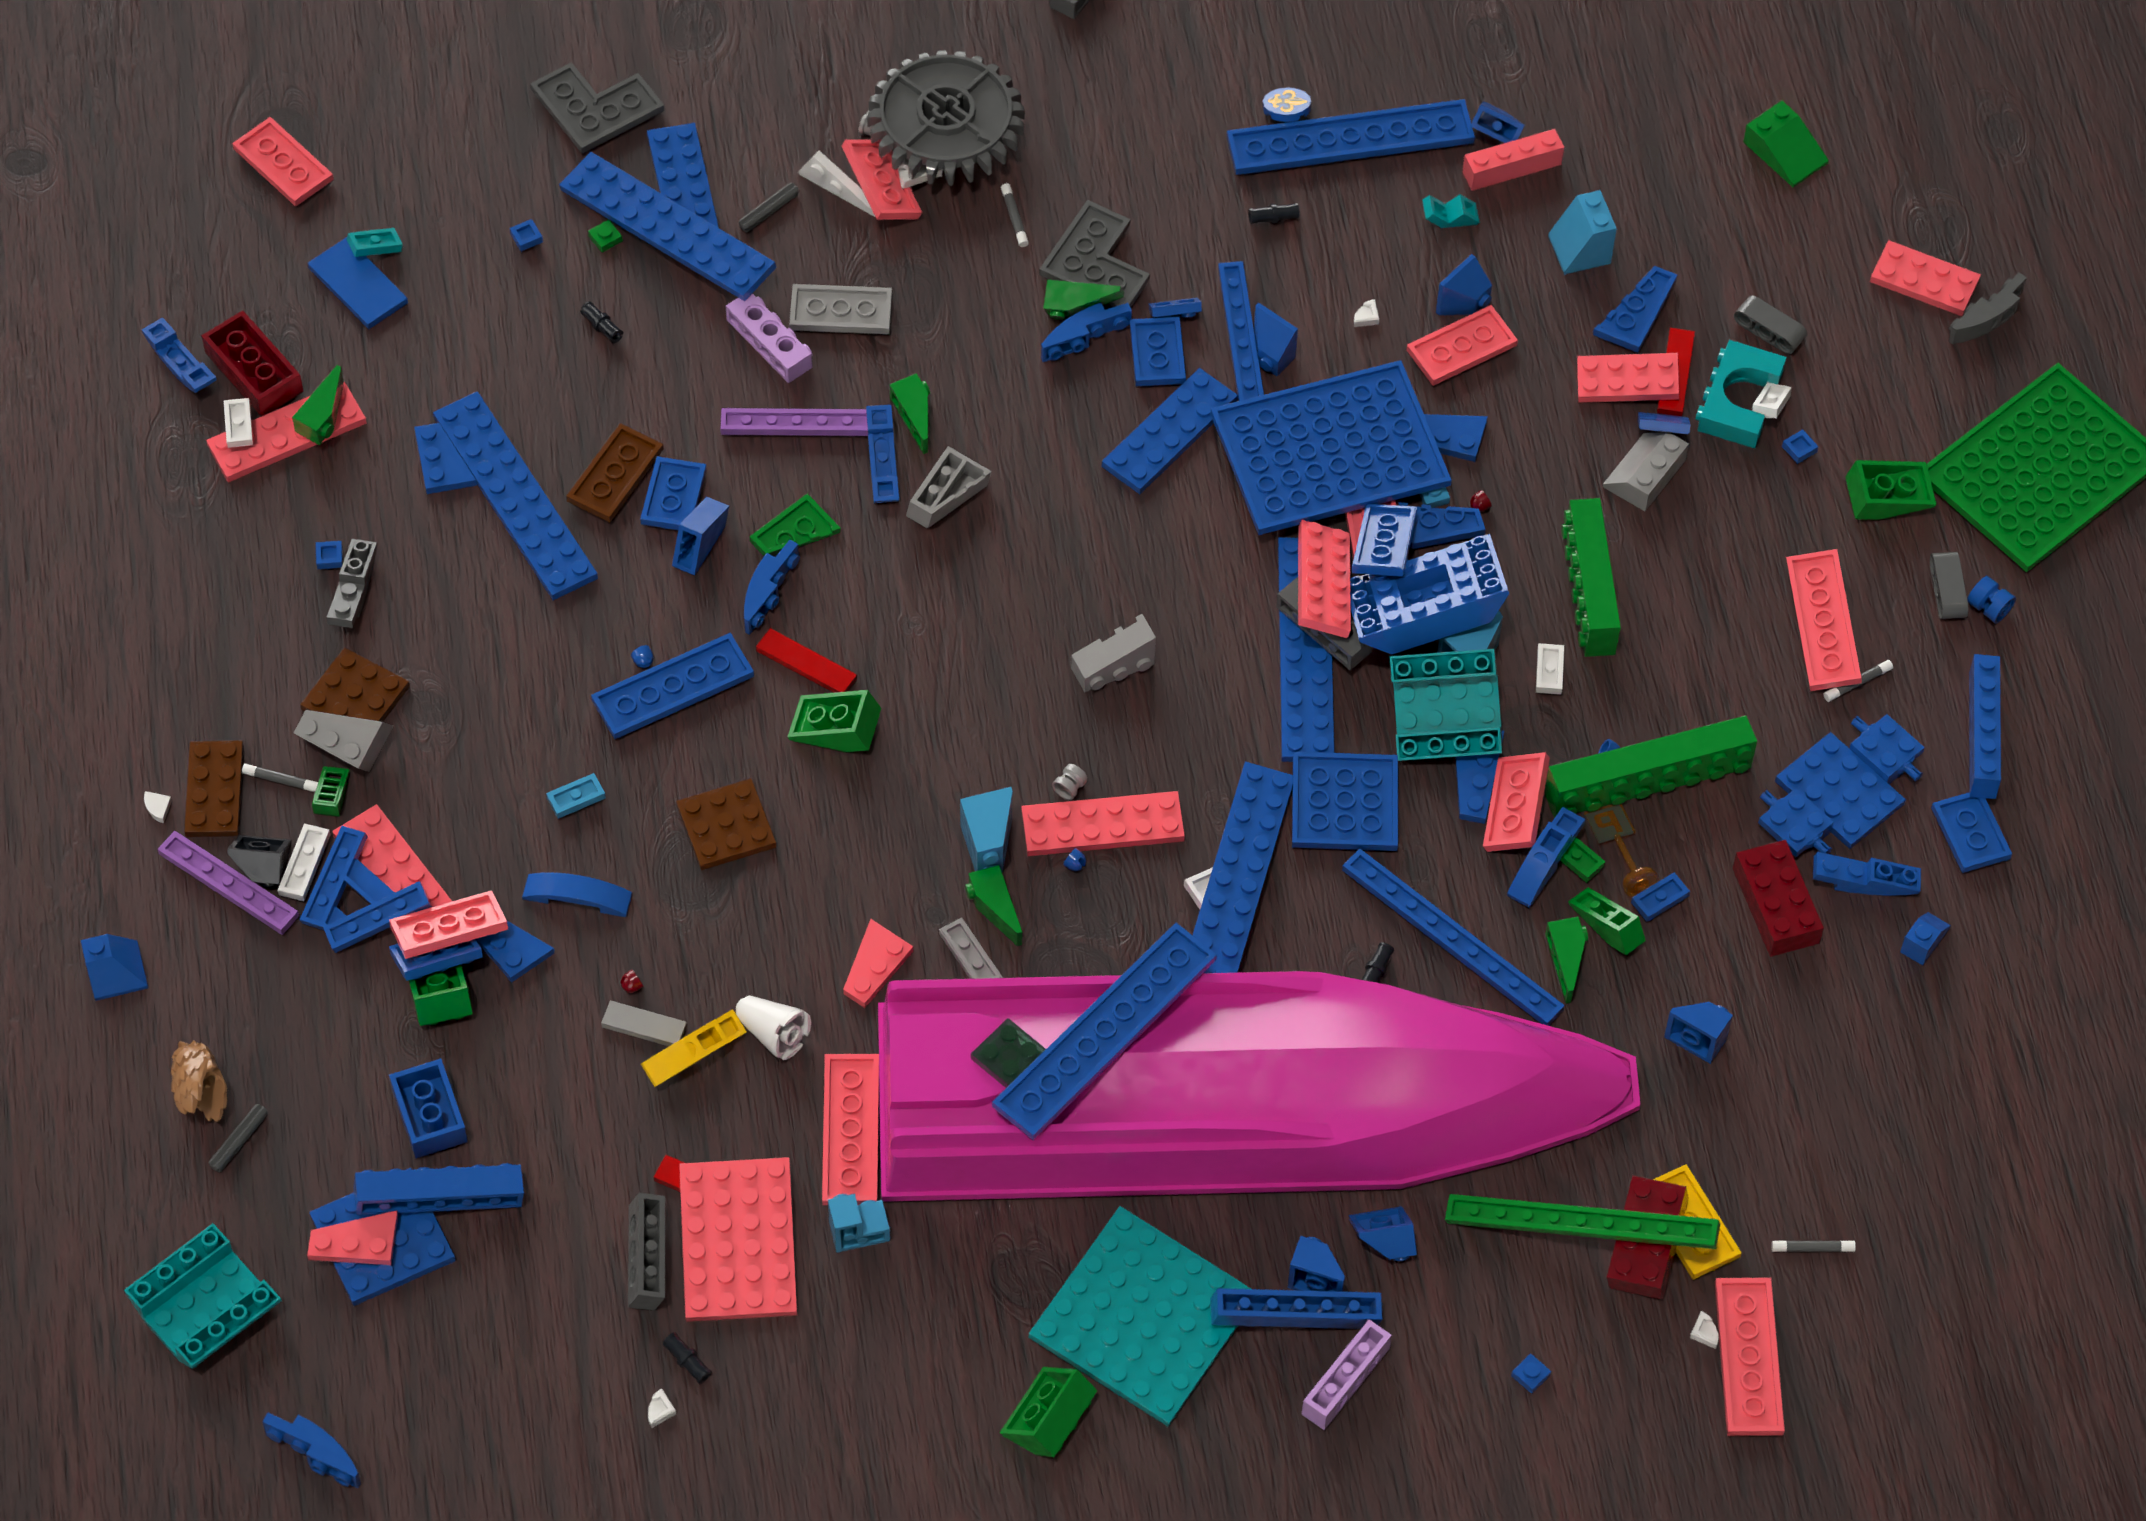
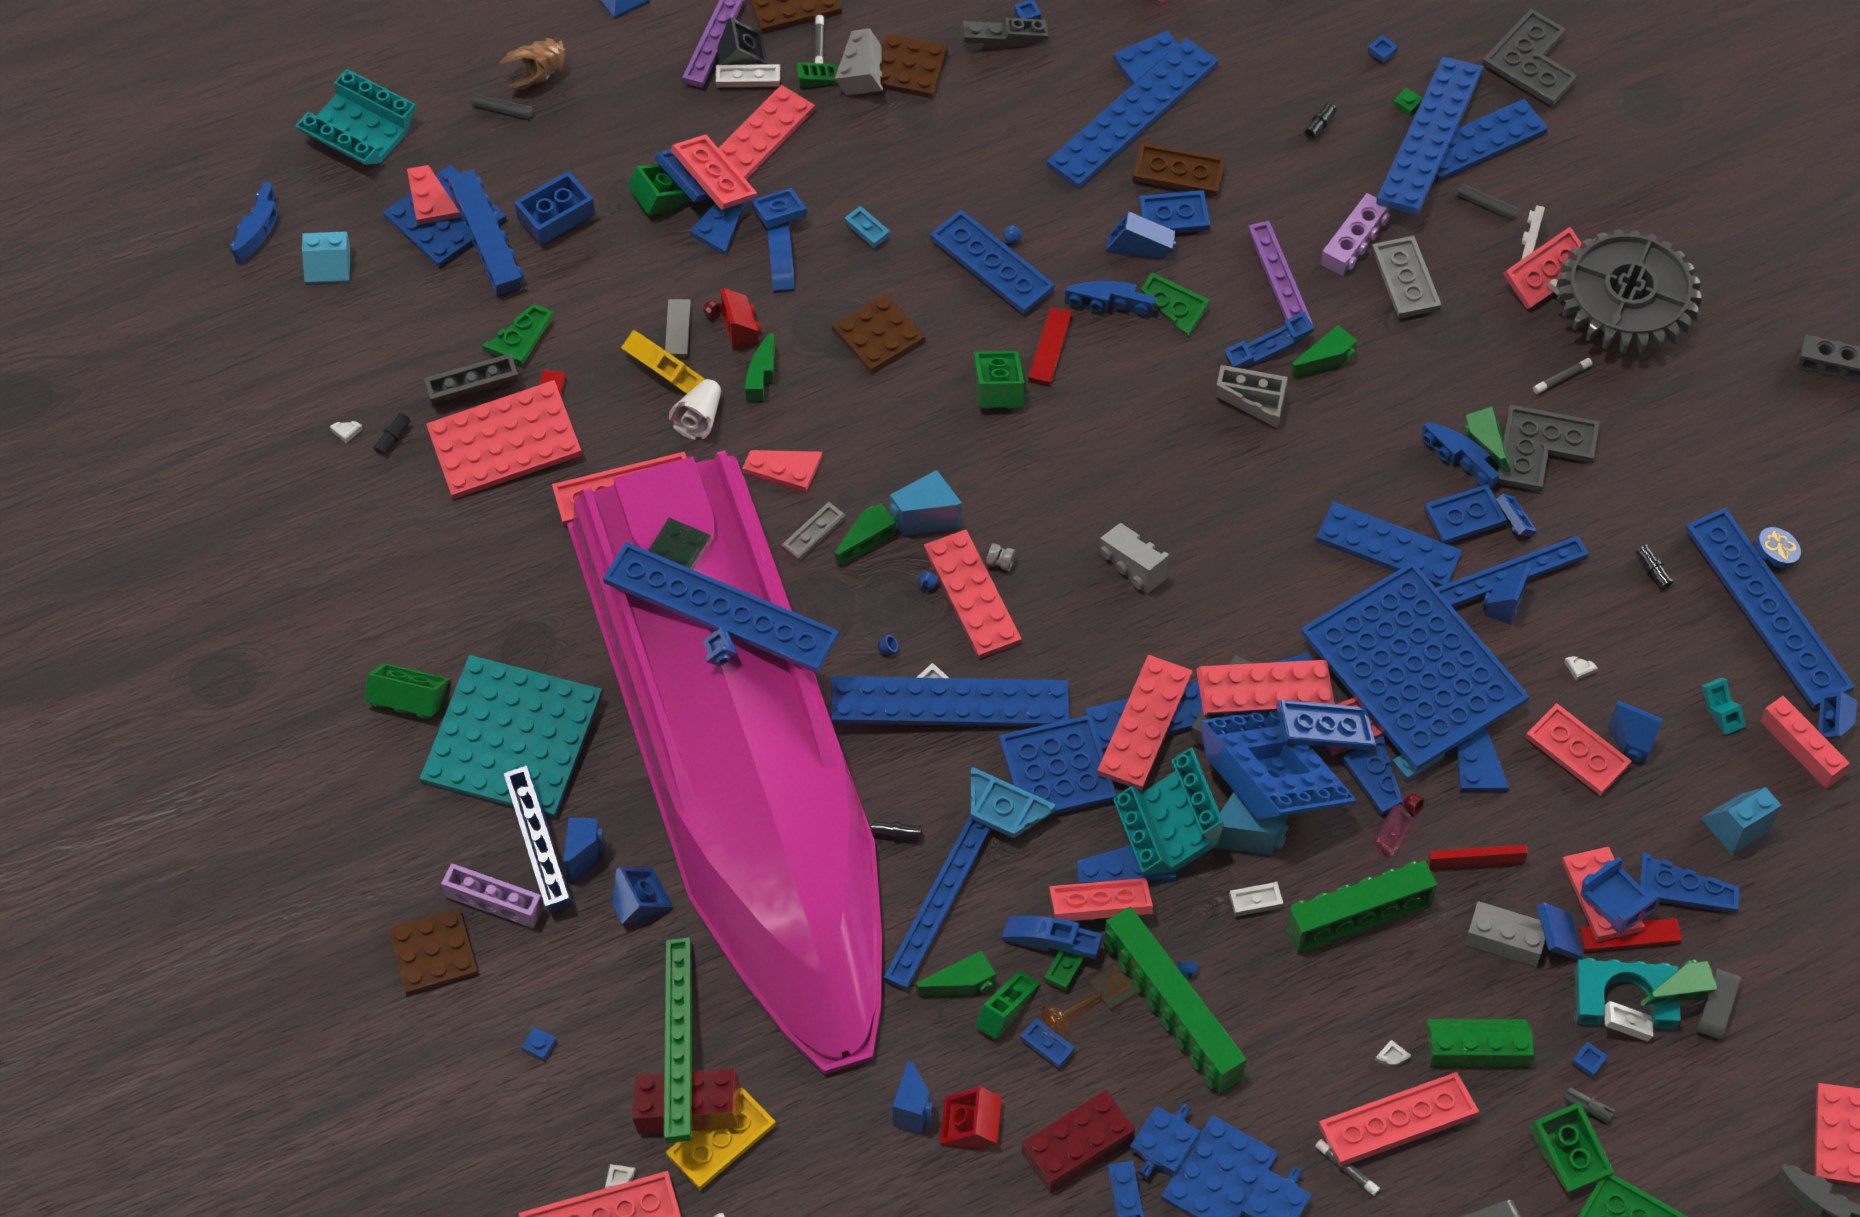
camera: 75 degrees right, 0 degrees up
(342, 869) = (741, 102): blue plate -> none
(400, 1378) = (326, 258): none -> medium azure slope
(518, 874) = (779, 208): none -> blue plate
(595, 1189) = (521, 335): none -> green wing
(664, 956) = (739, 319): none -> red slope
(738, 950) = (760, 370): none -> green slope
(857, 1224) = (534, 509): dark azure brick -> none
(1144, 917) = (888, 645): none -> blue hinge
(1160, 1042) = (719, 647): none -> blue bracket
(1321, 703) = (1144, 722): none -> coral plate
(1383, 856) = (1005, 805): none -> dark azure wing
(1389, 1455) = (433, 951): none -> reddish brown plate
(1503, 523) = (1393, 830): none -> clear pink plate
(1558, 467) = (1477, 857): none -> red tile
(1646, 359) = (1618, 896): none -> blue panel
(1730, 985) = (971, 1119): none -> red slope
(1749, 607) = (1392, 1055): none -> white tile
(1756, 339) = (1688, 983): none -> slope
(1756, 528) = (1479, 1043): none -> green slope
(1846, 461) = (1590, 1105): none -> dark grey axle

